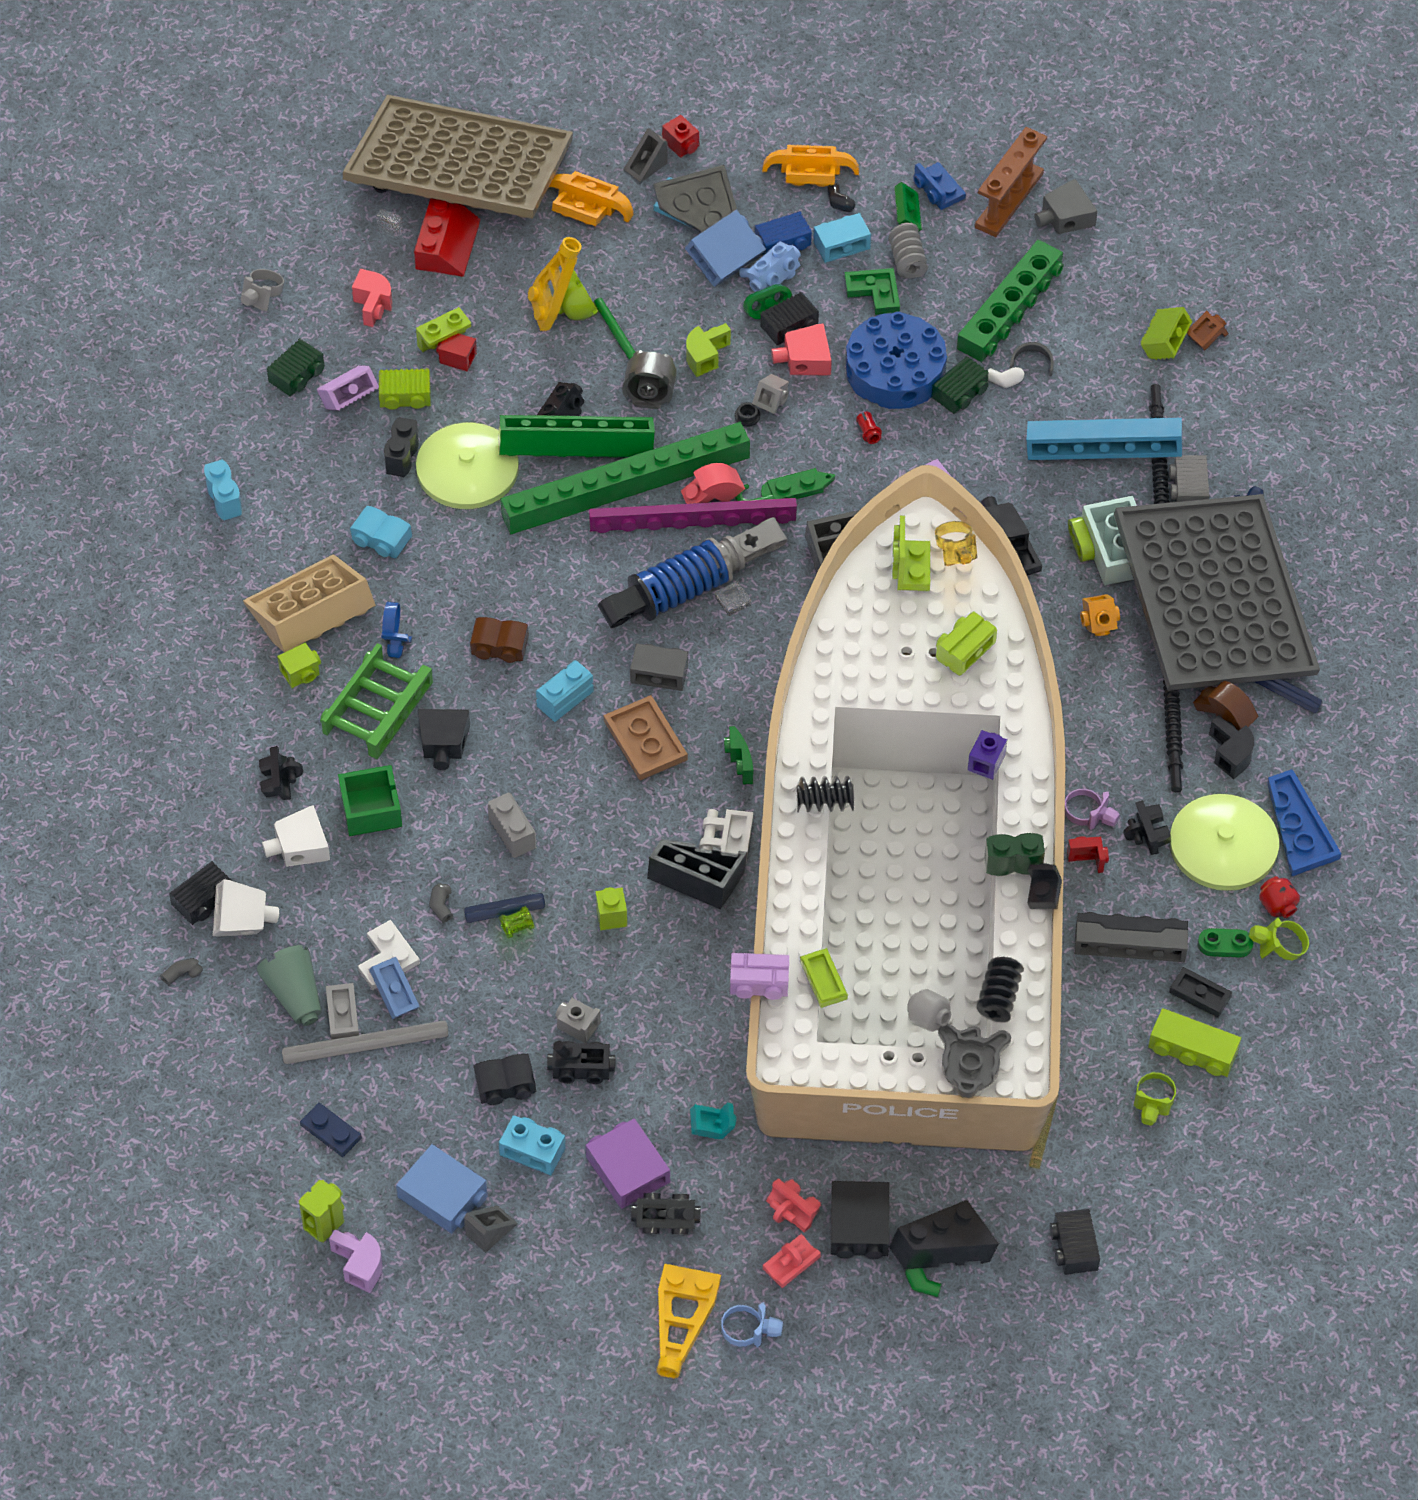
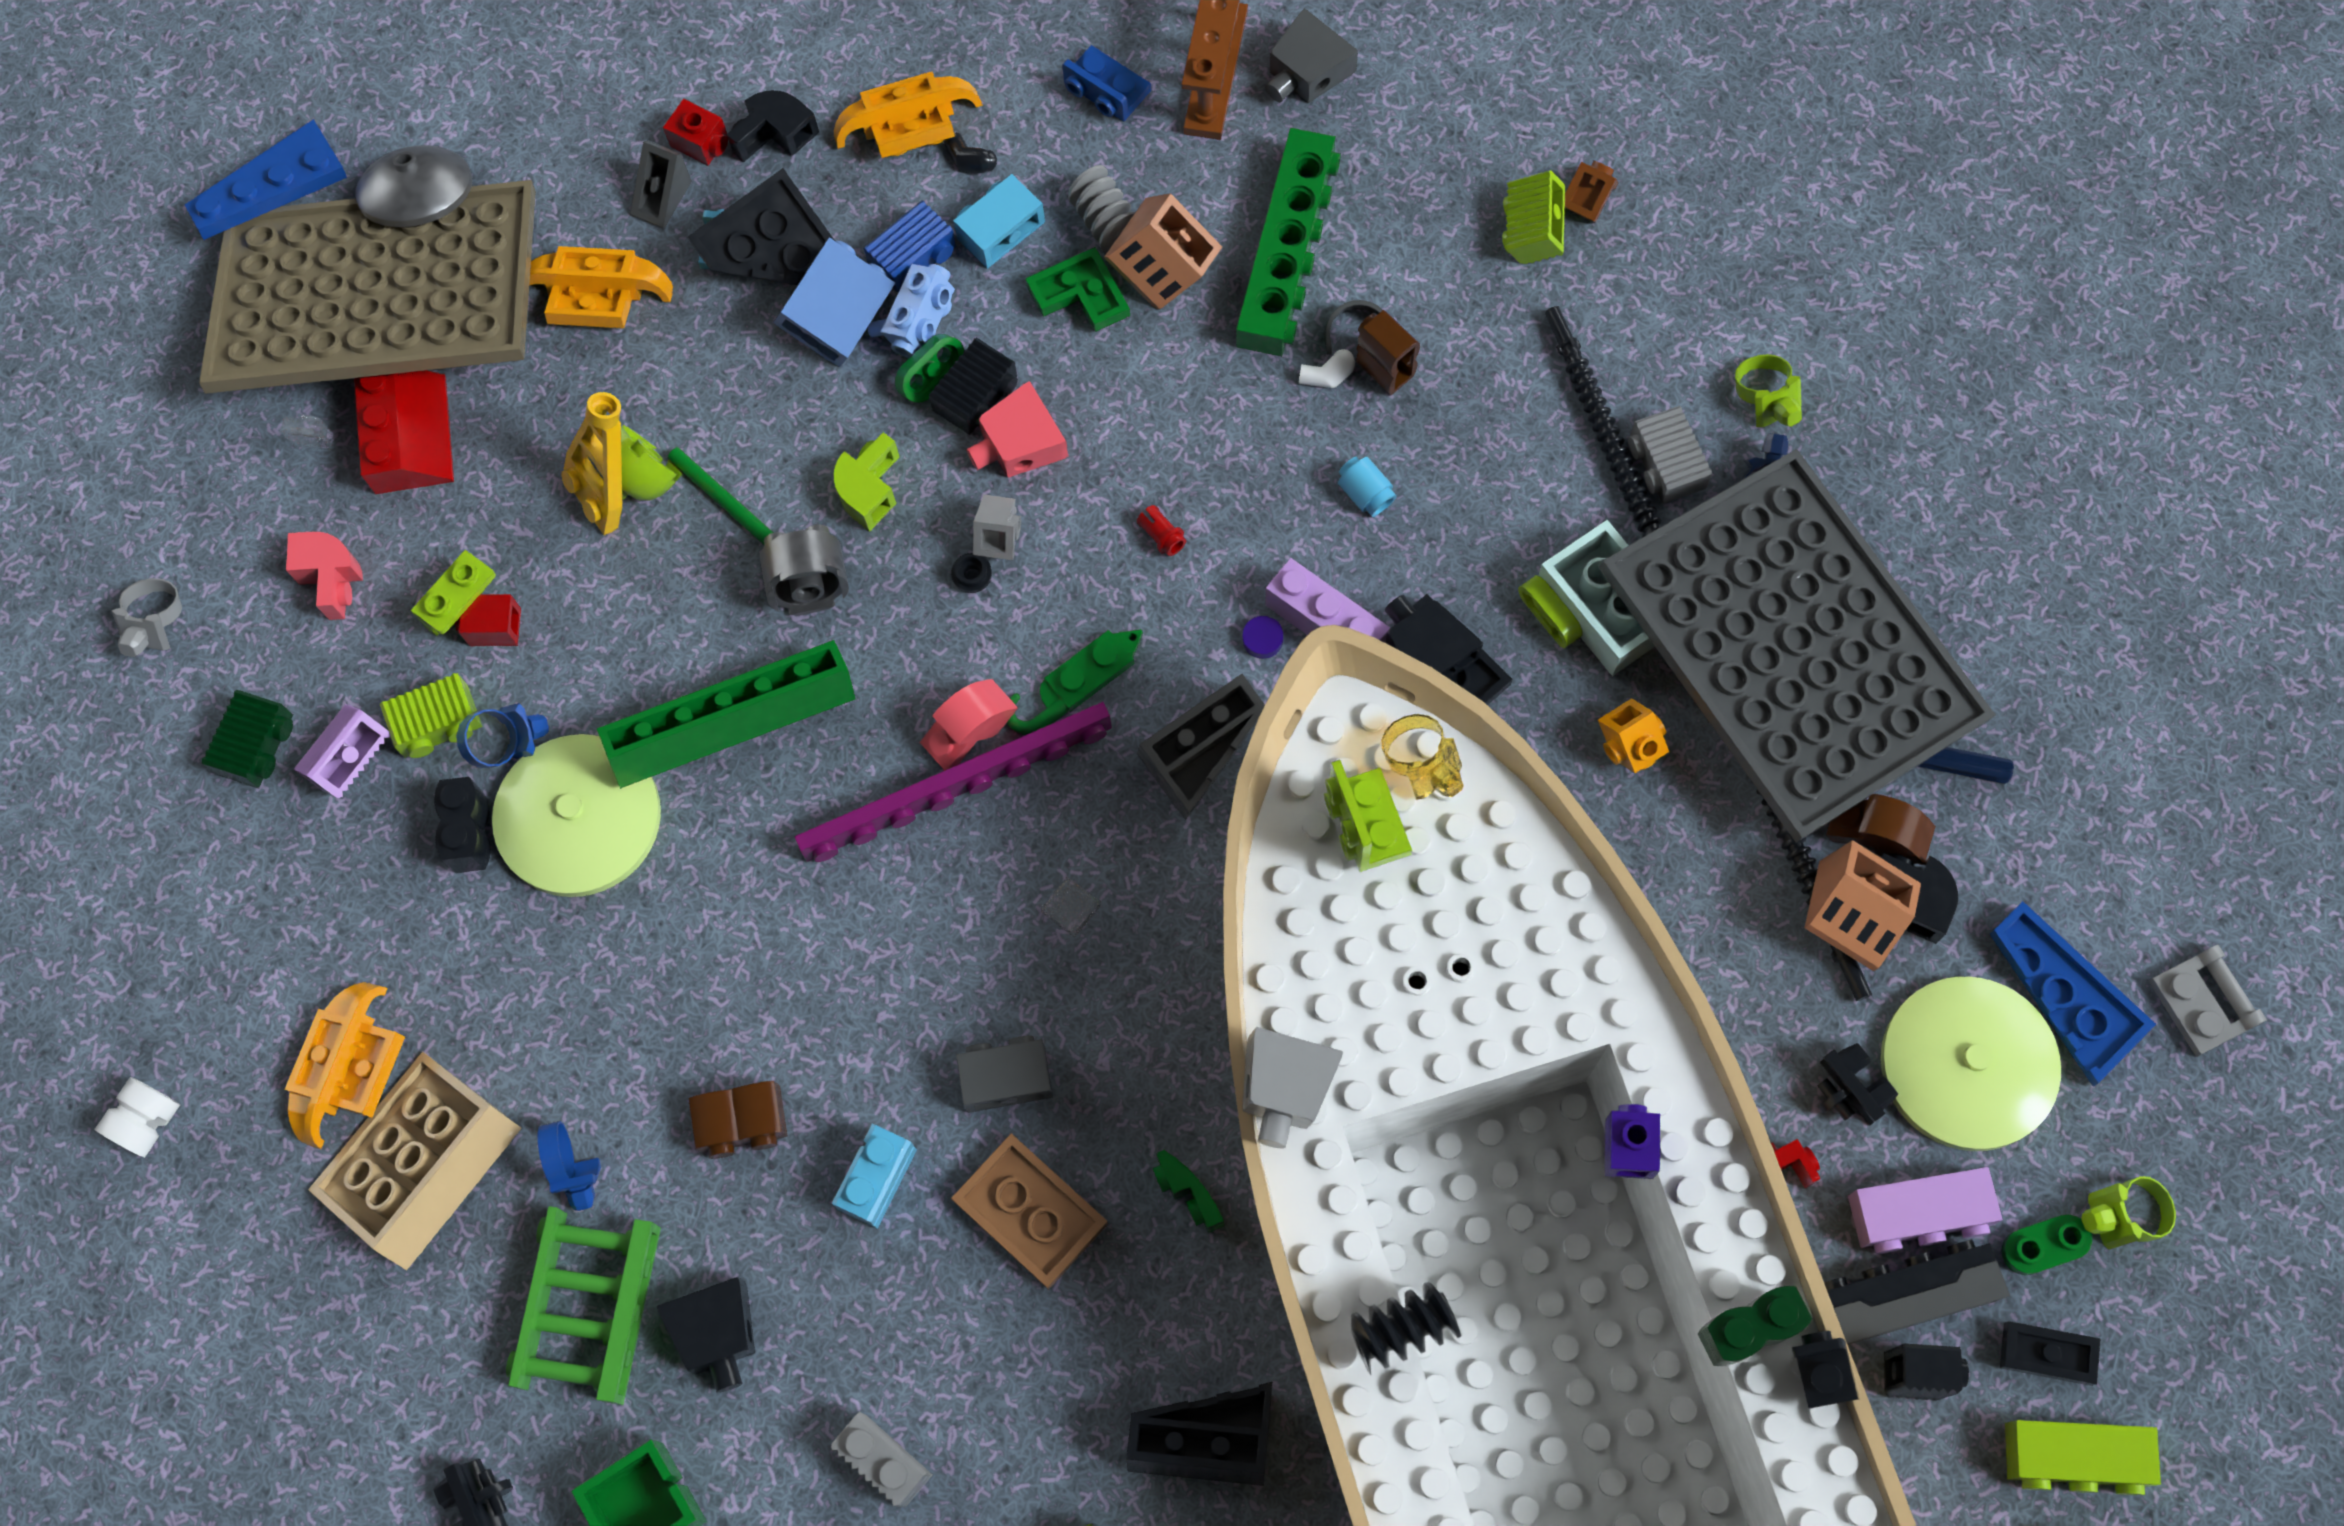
camera: 15 degrees left, 15 degrees up
(167, 529) = (137, 1117): none -> white wheel
(223, 489) = (206, 1005): medium azure brick -> none
(286, 543) = (341, 1063): none -> light orange plate
(299, 665) = (439, 1285): lime brick -> none
(381, 532) = (483, 989): medium azure brick -> none
(426, 84) = (272, 179): none -> blue wing
(453, 410) = (521, 731): none -> blue piece
(502, 113) = (413, 186): none -> flat silver dish
(563, 401) = (684, 664): black brick -> none
(623, 478) = (827, 756): green brick -> none
(690, 574) = (1004, 876): piece -> none
(728, 141) = (774, 117): none -> black brick
(735, 828) = (1236, 1342): white plate -> none
(812, 665) = (1285, 1082): none -> light grey torso
(895, 360) = (1159, 403): blue brick -> none
(907, 205) = (1075, 135): green plate -> none
(931, 280) = (1162, 250): none -> nougat slope
(960, 385) = (1270, 410): dark green brick -> none
(965, 643) = (1513, 941): lime brick -> none
(1001, 442) = (1366, 485): none -> medium azure brick
(1043, 373) = (1387, 351): none -> reddish brown brick
(1104, 438) = (1523, 431): dark azure brick -> none
(1108, 815) = (1786, 1086): lavender piece -> none
(1120, 968) = (1924, 1371): none -> black brick
(1160, 898) = (1925, 1210): none -> lavender brick
(1192, 733) = (1861, 904): none -> nougat slope
(1267, 476) = (1780, 405): none -> lime piece
(1279, 897) = (2099, 1139): red head -> none
(1371, 857) = (2195, 1007): none -> light grey plate

